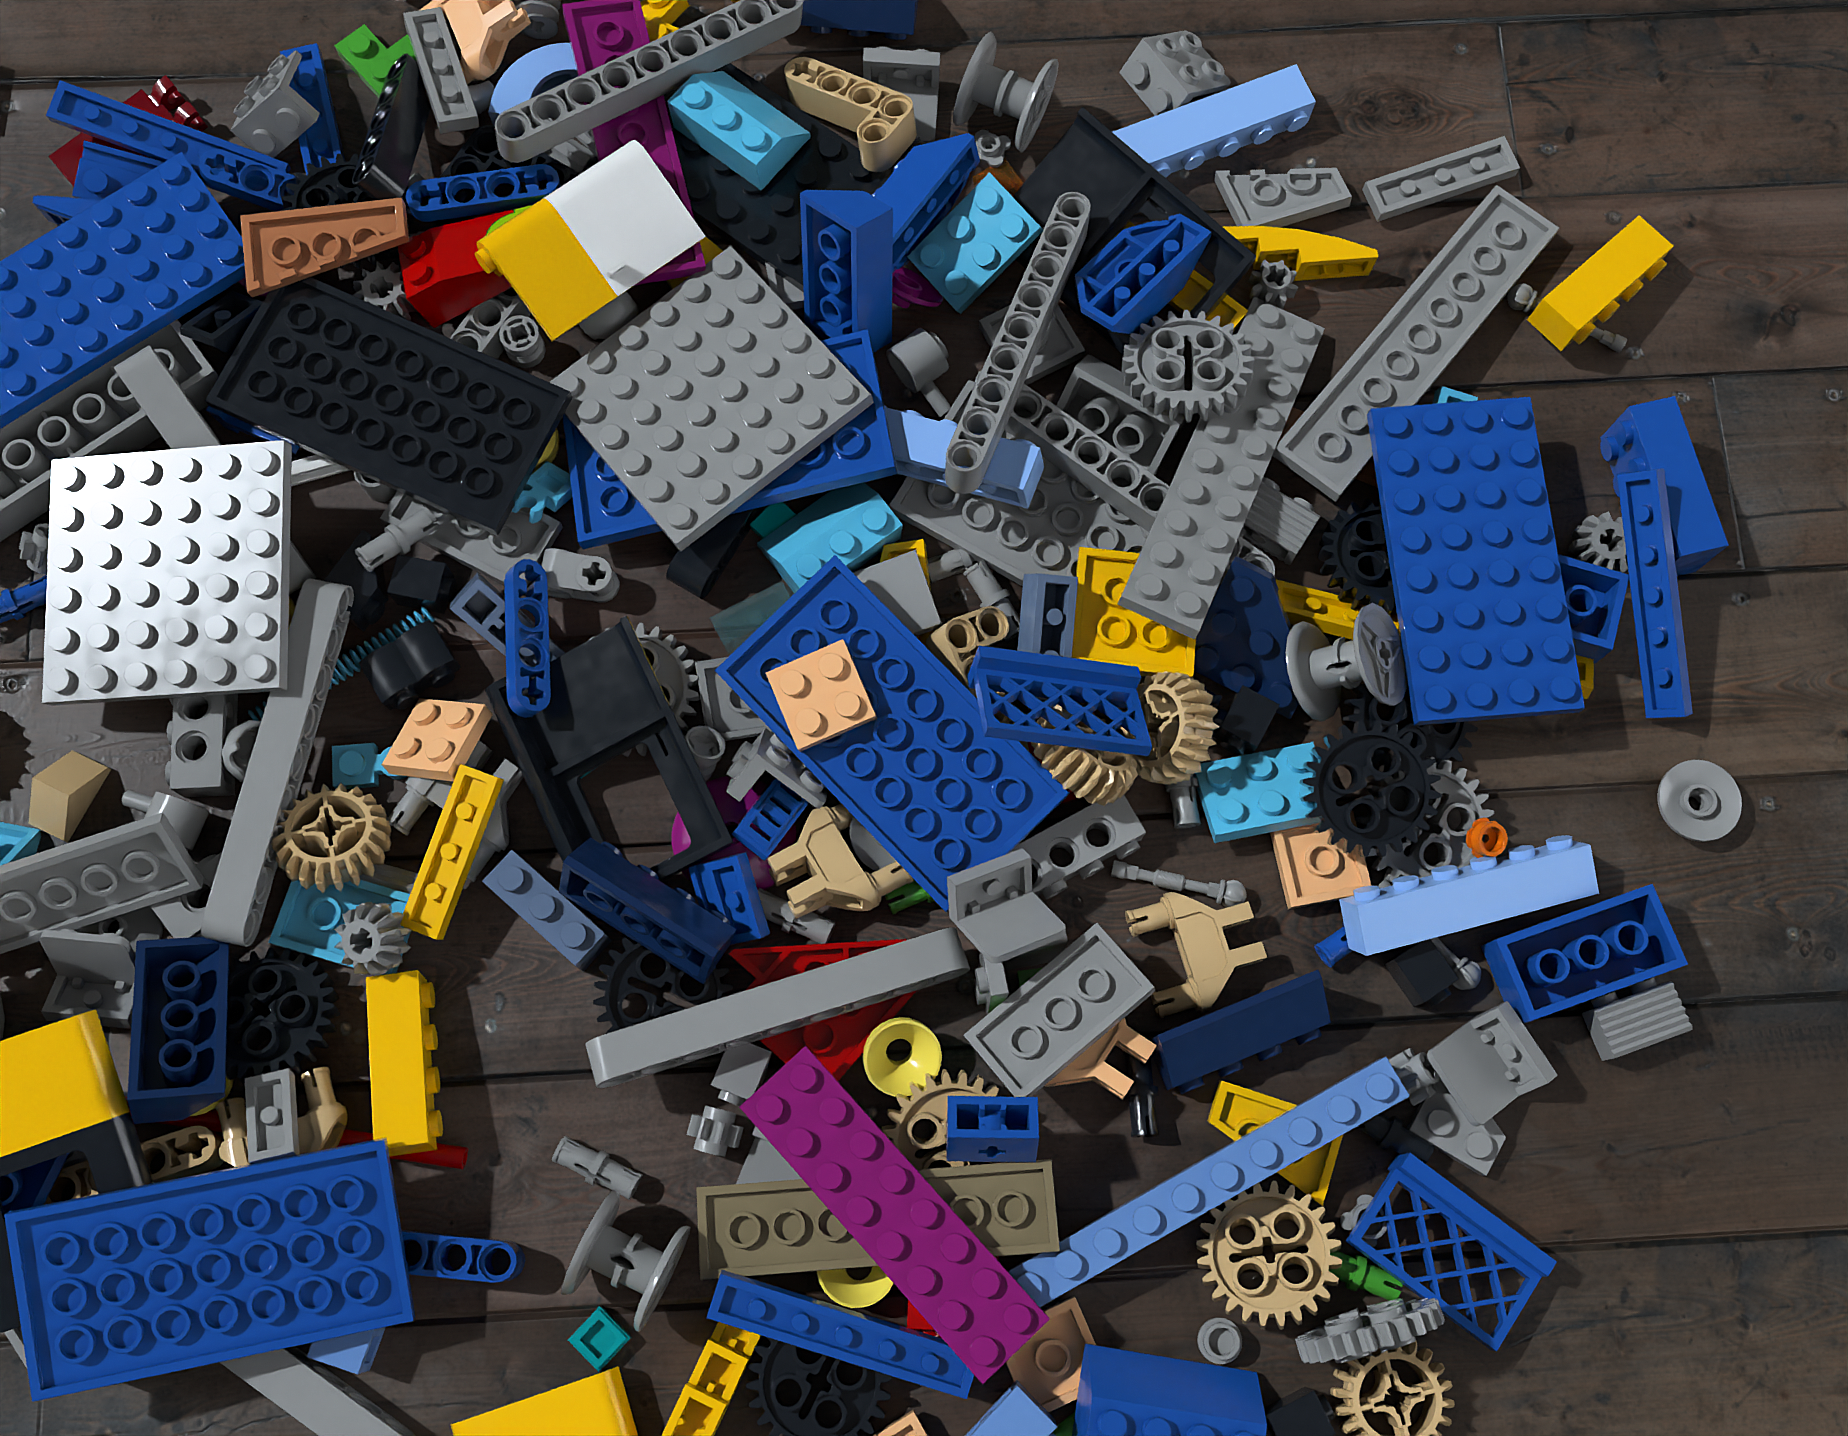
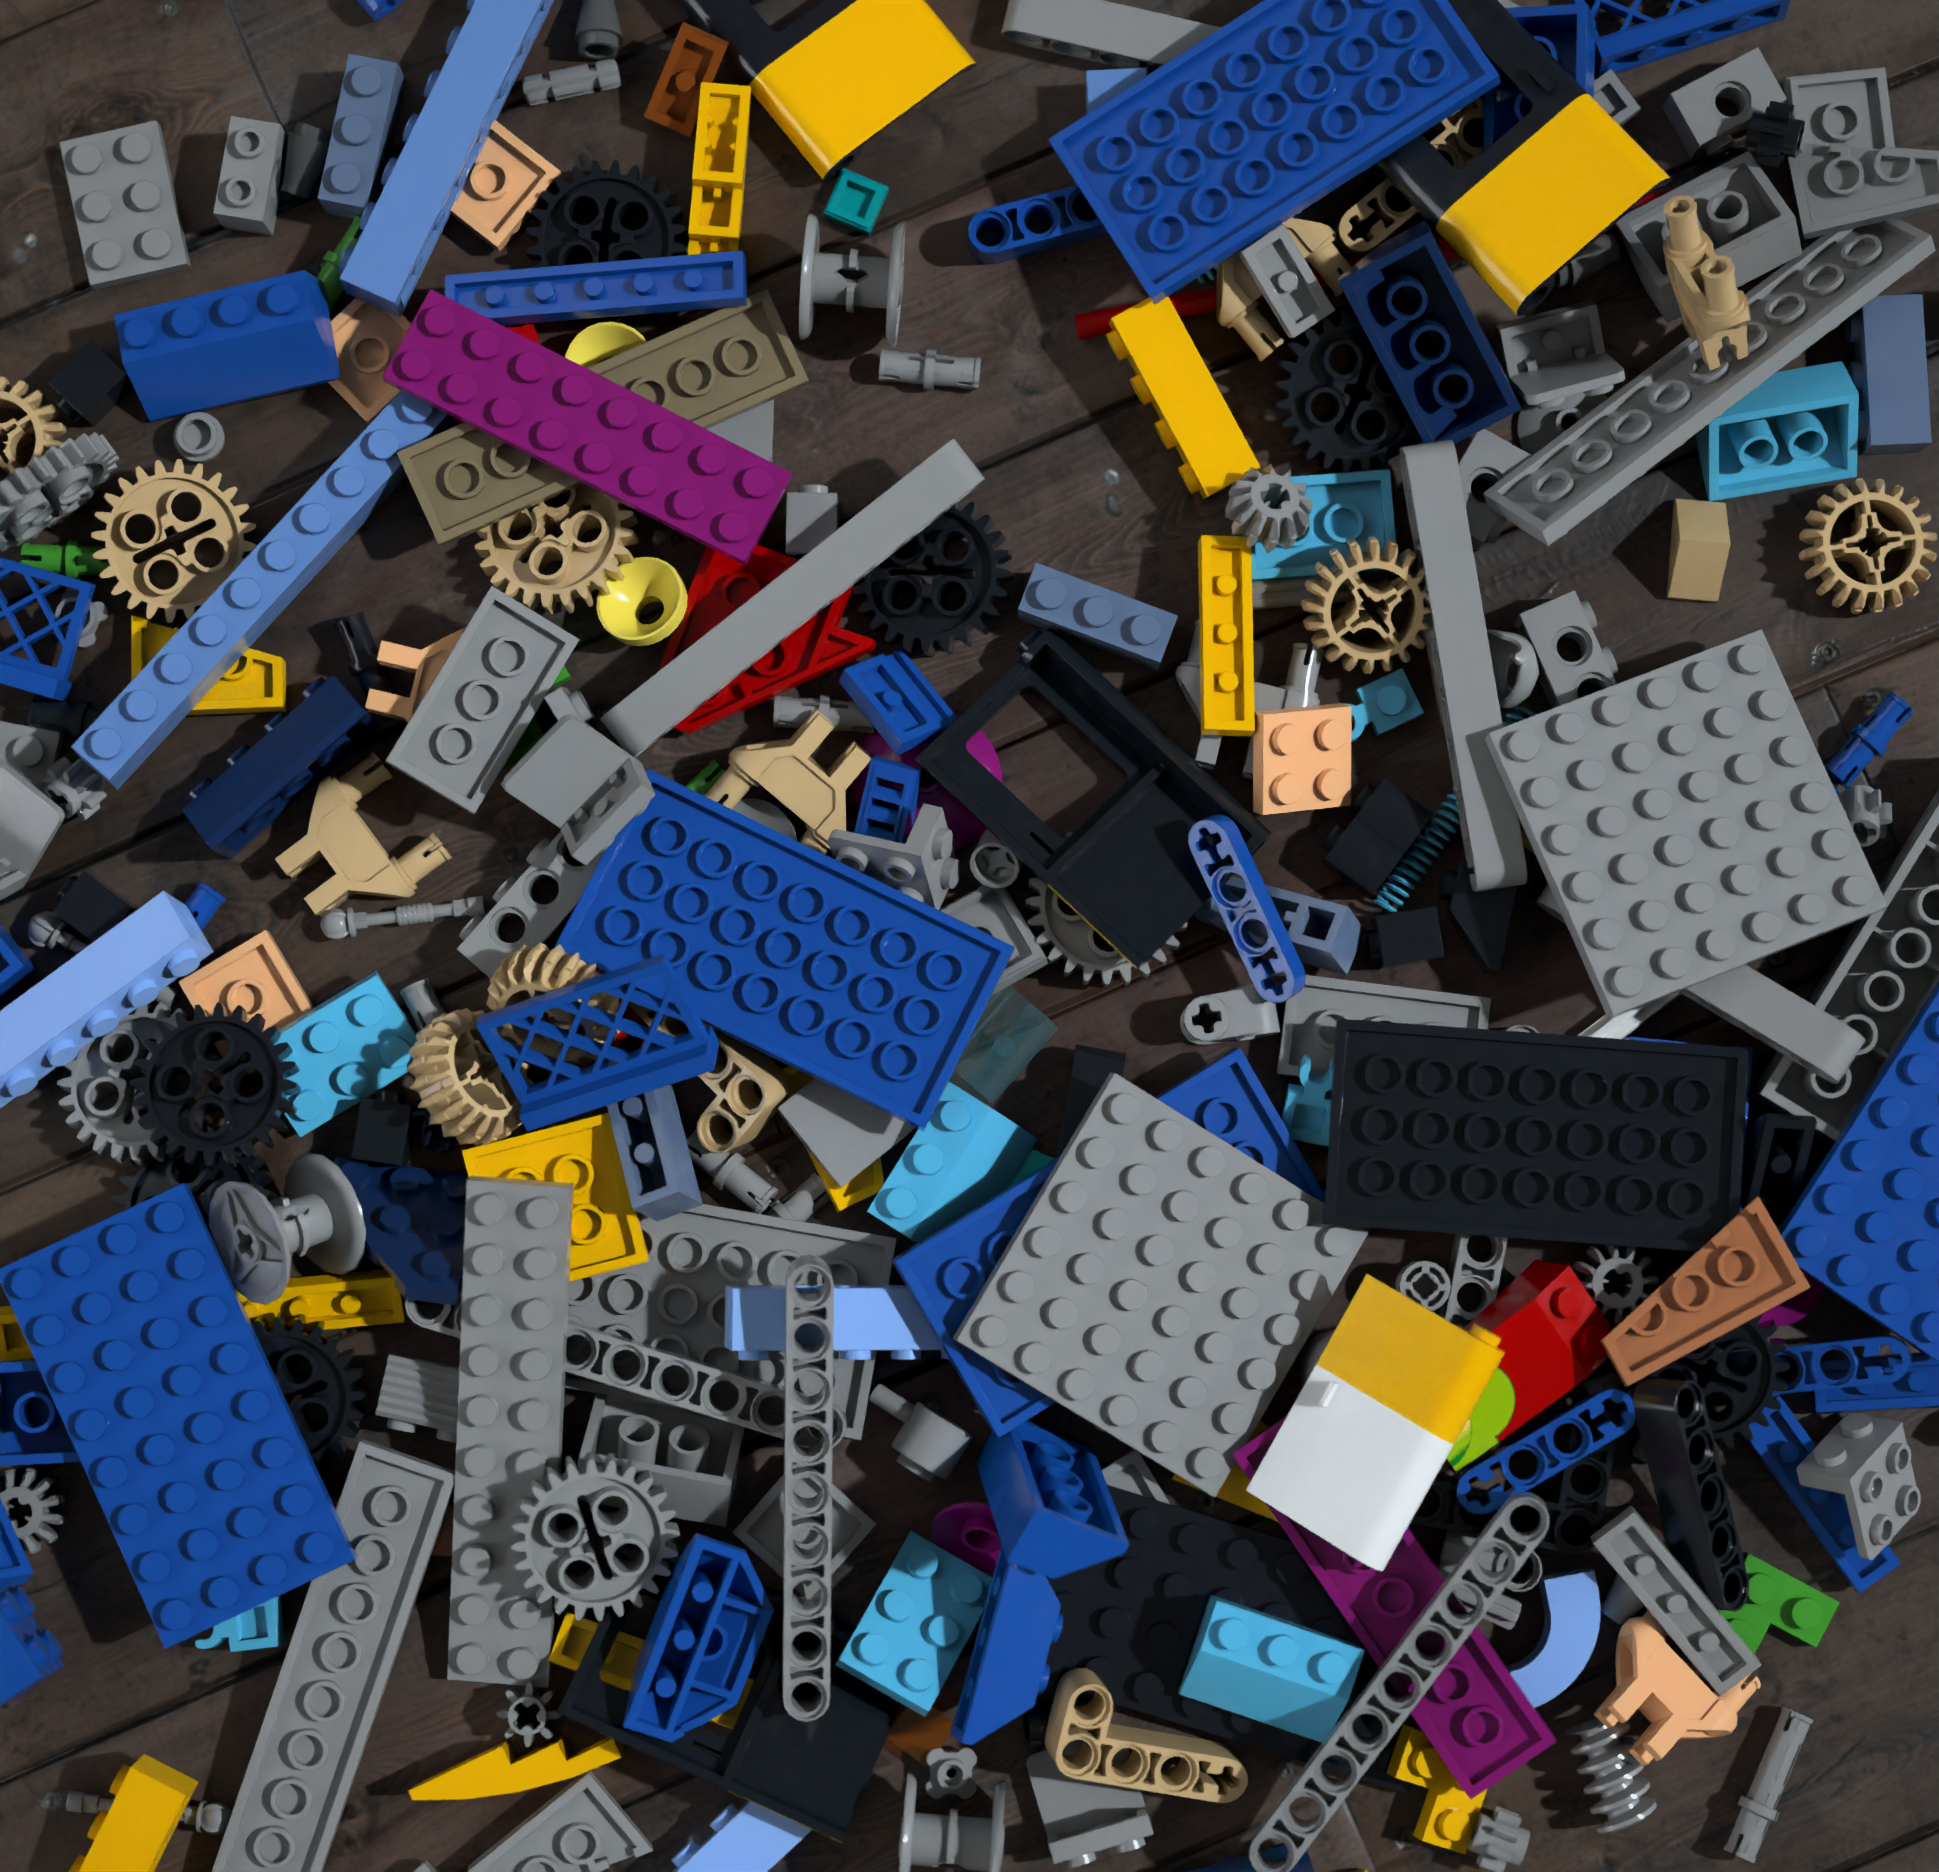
camera: 165 degrees right, 10 degrees up
(183, 816) = (1568, 564): light grey piece -> none
(397, 539) = (1451, 972): light grey pin -> none
(645, 908) = (976, 648): dark blue slope -> none
(714, 1131) = (816, 451): light grey gear -> none
(821, 695) = (877, 957): light nougat plate -> none
(992, 1129) = (511, 547): blue brick -> none
(1495, 838) = (56, 1080): orange plate -> none

